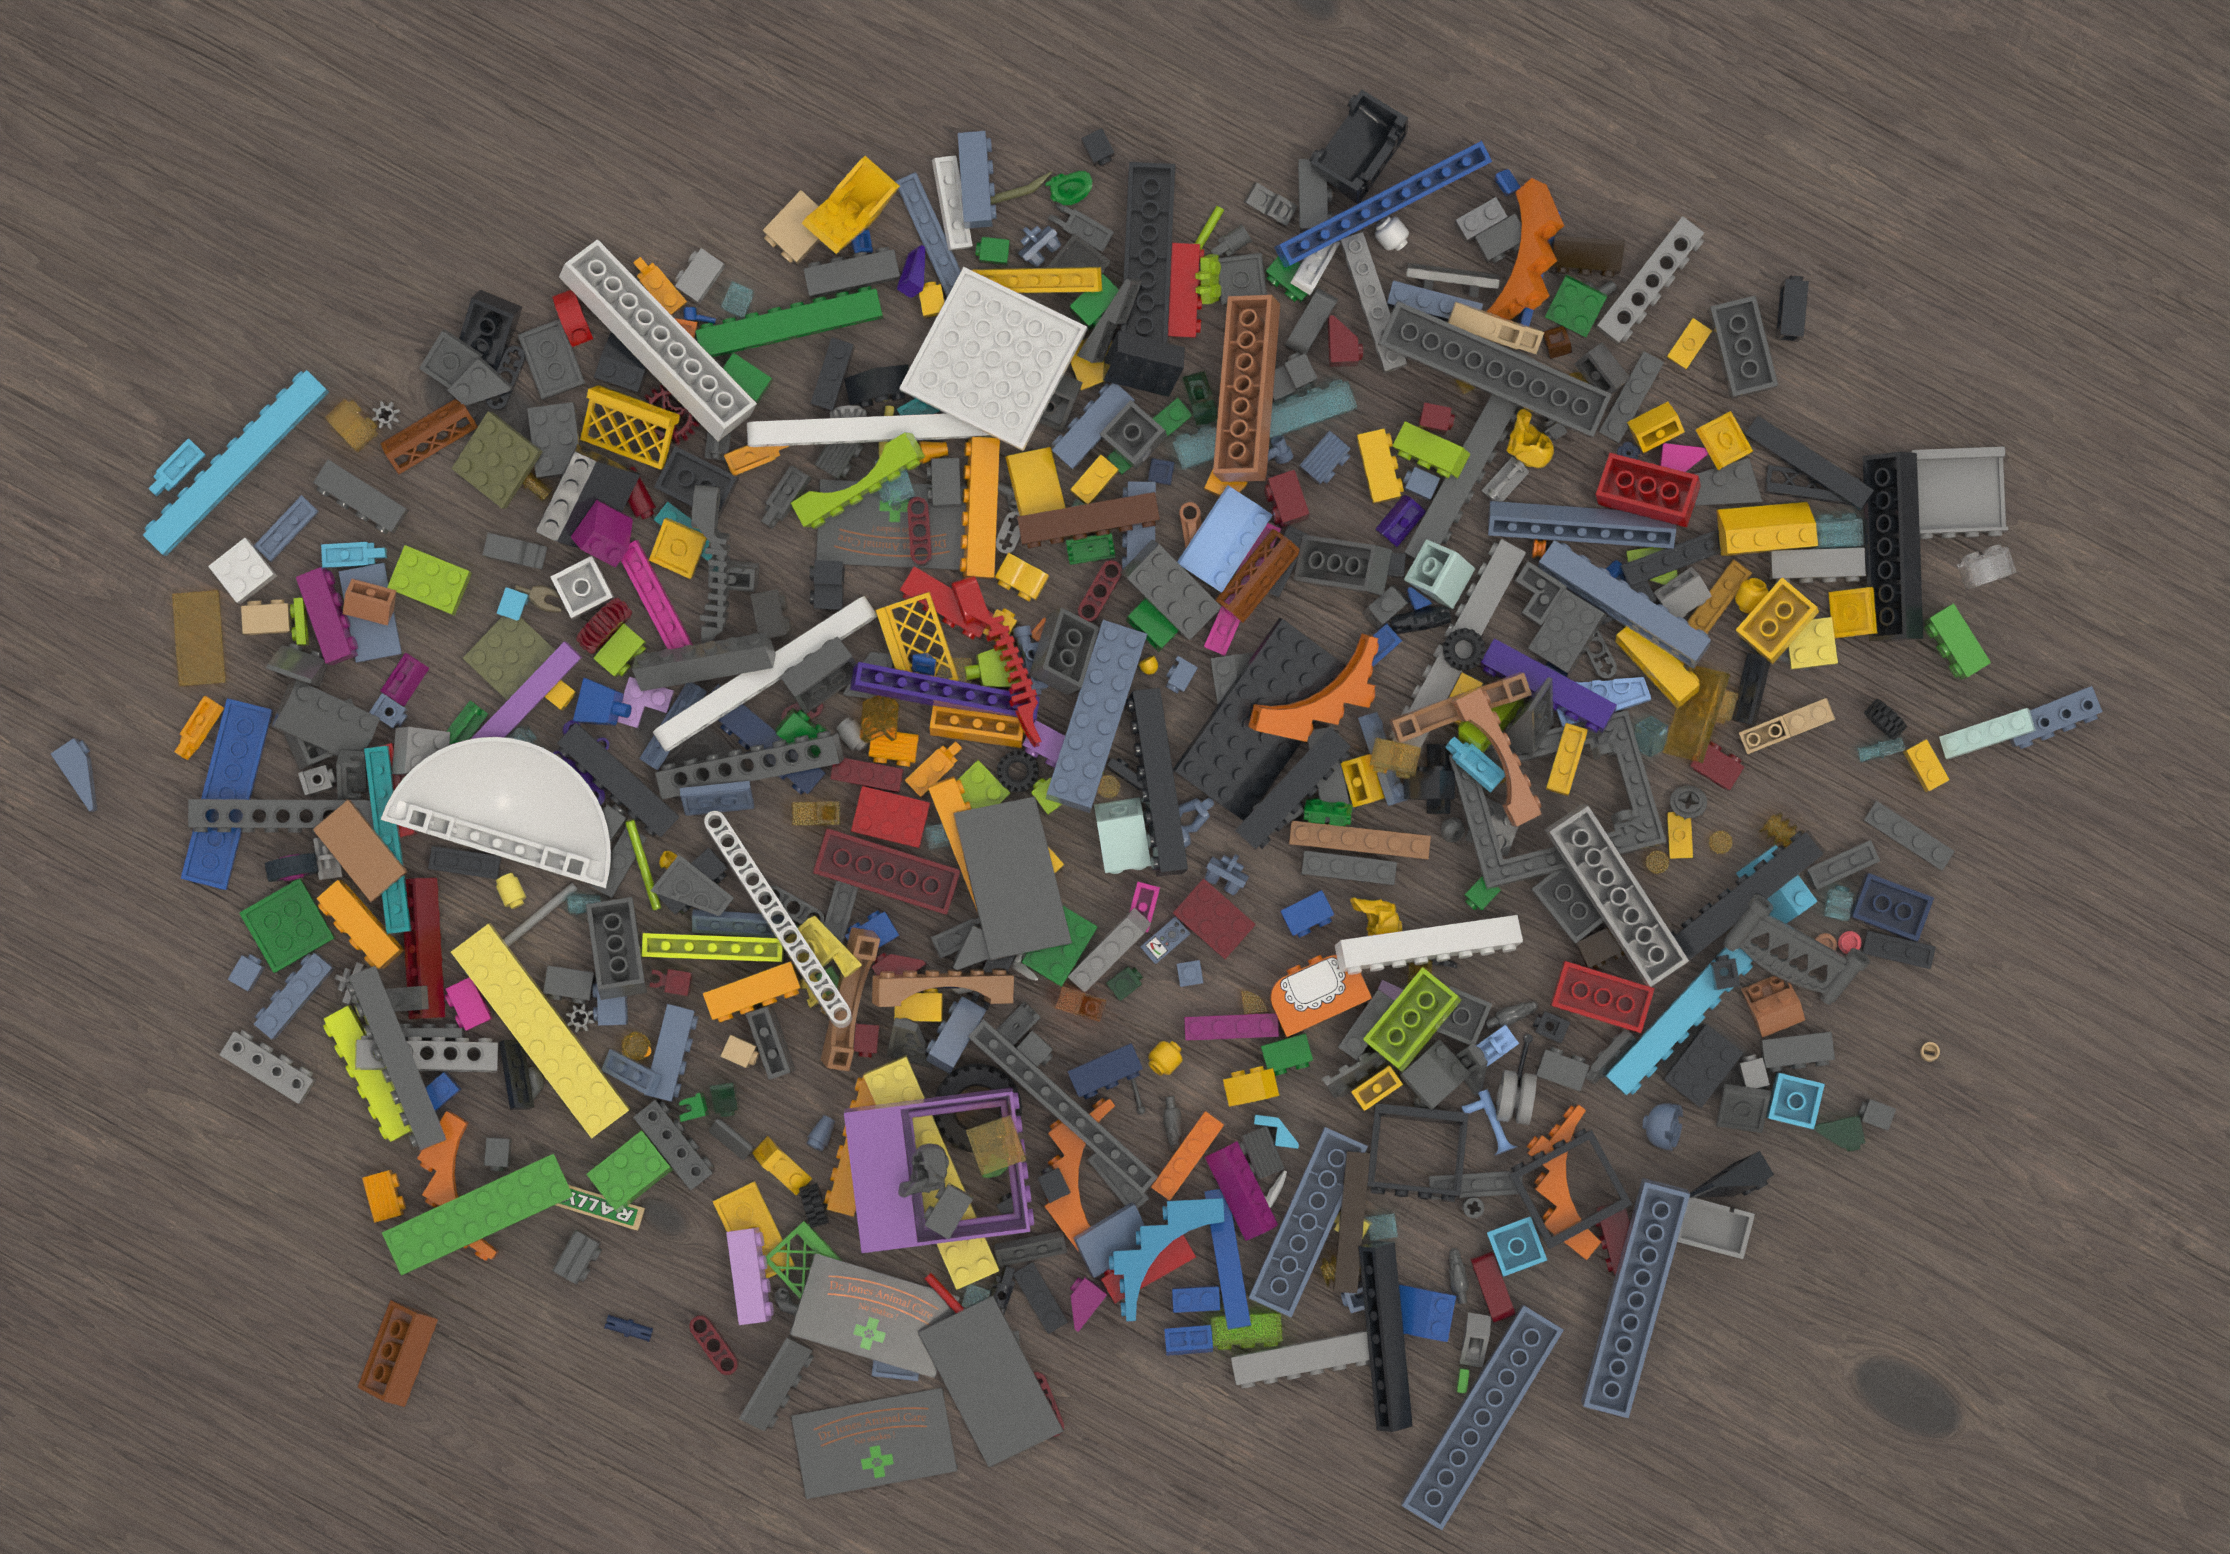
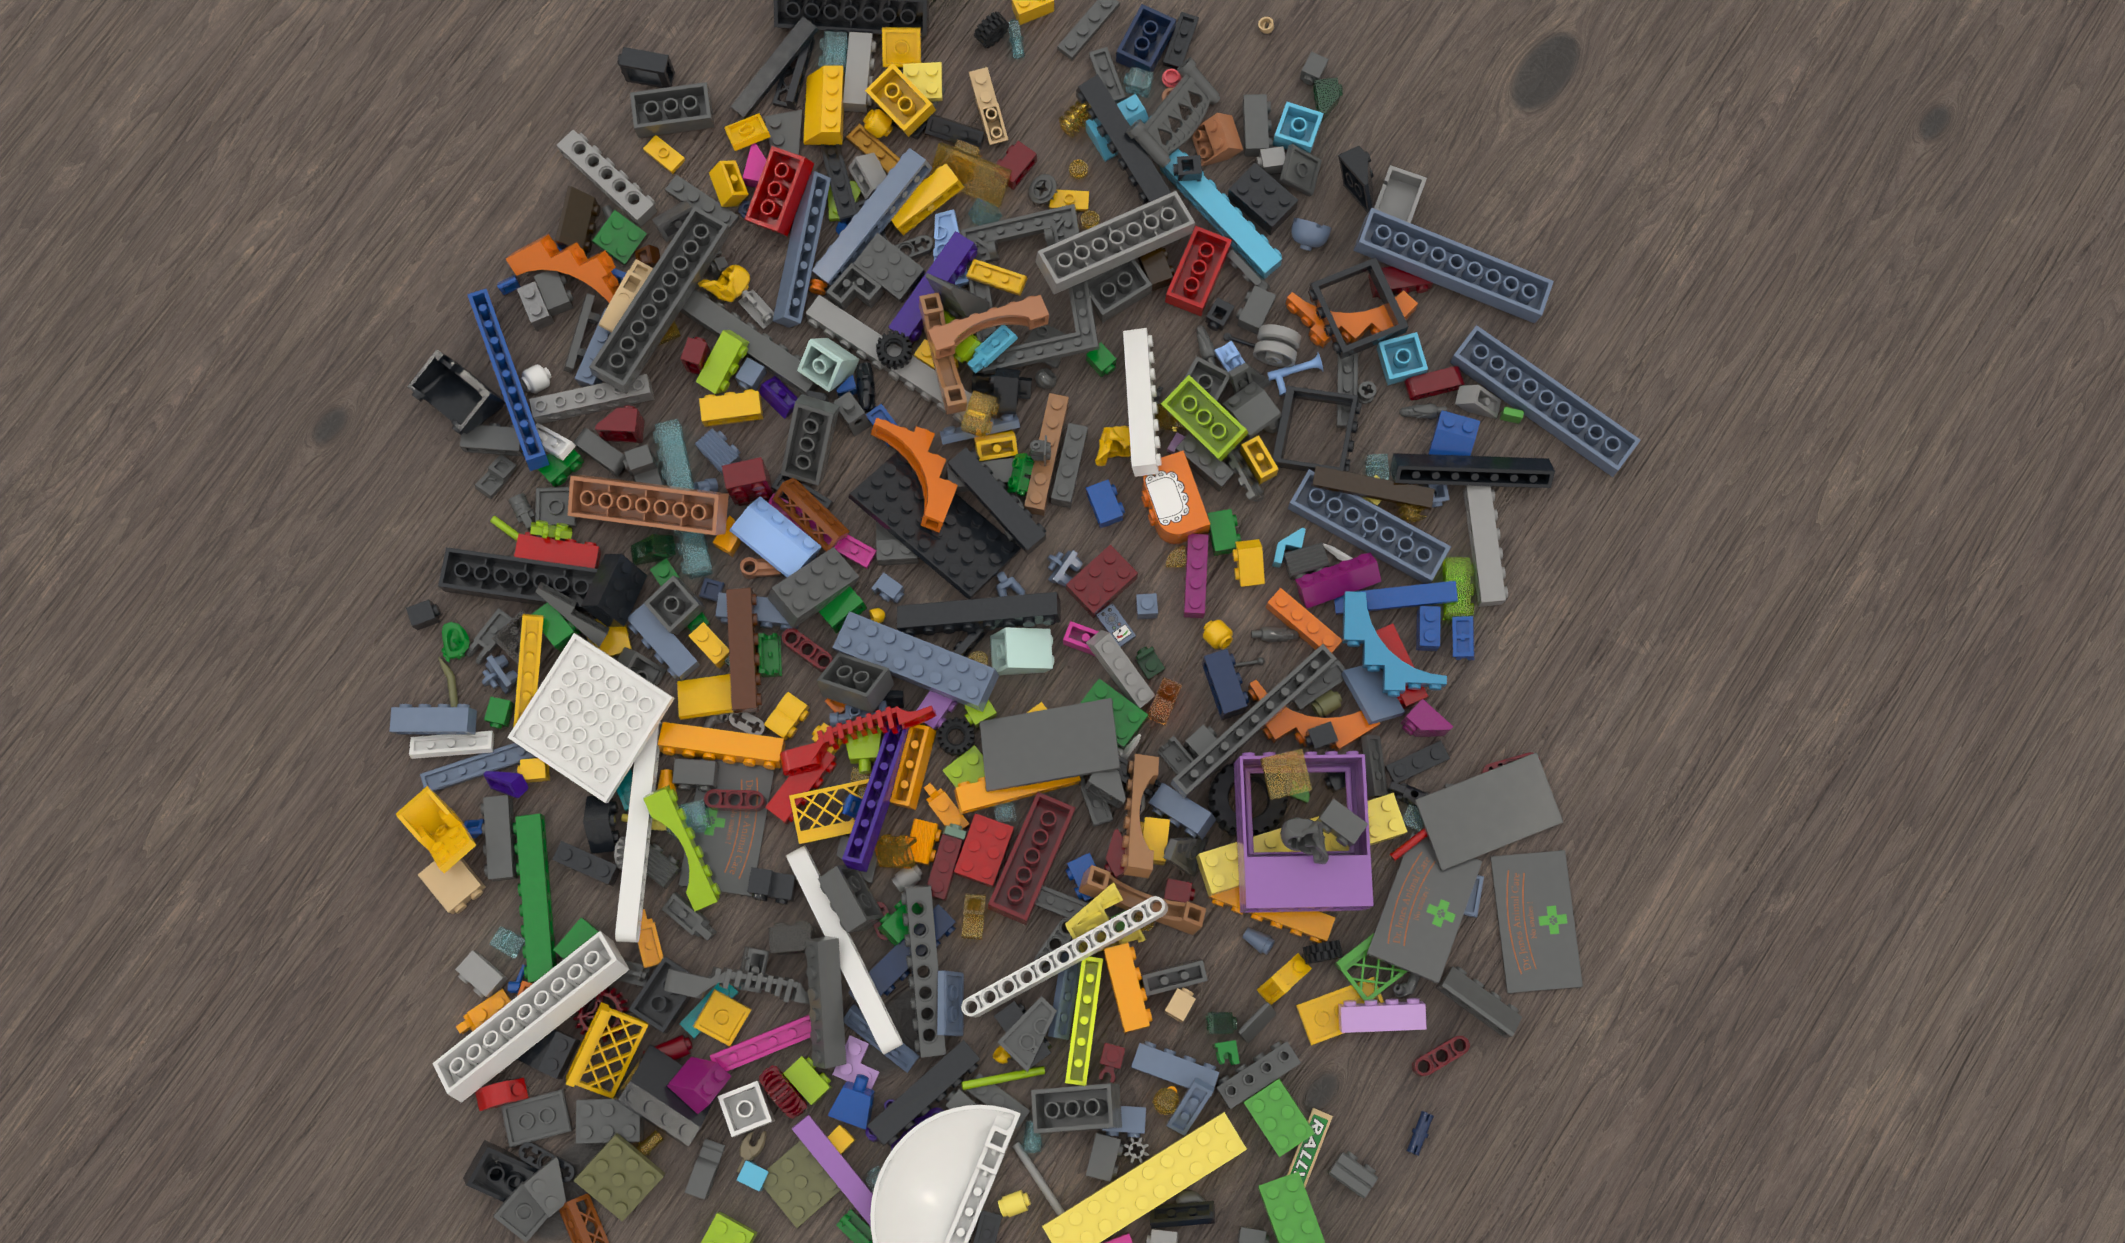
camera: 85 degrees left, 10 degrees down
(907, 781) = (954, 831): none -> sand green plate
(1053, 697) = (895, 698): none -> black tile
(1097, 1189) = (1326, 703): none -> olive brick
(1353, 834) = (1041, 450): none -> dark grey hinge

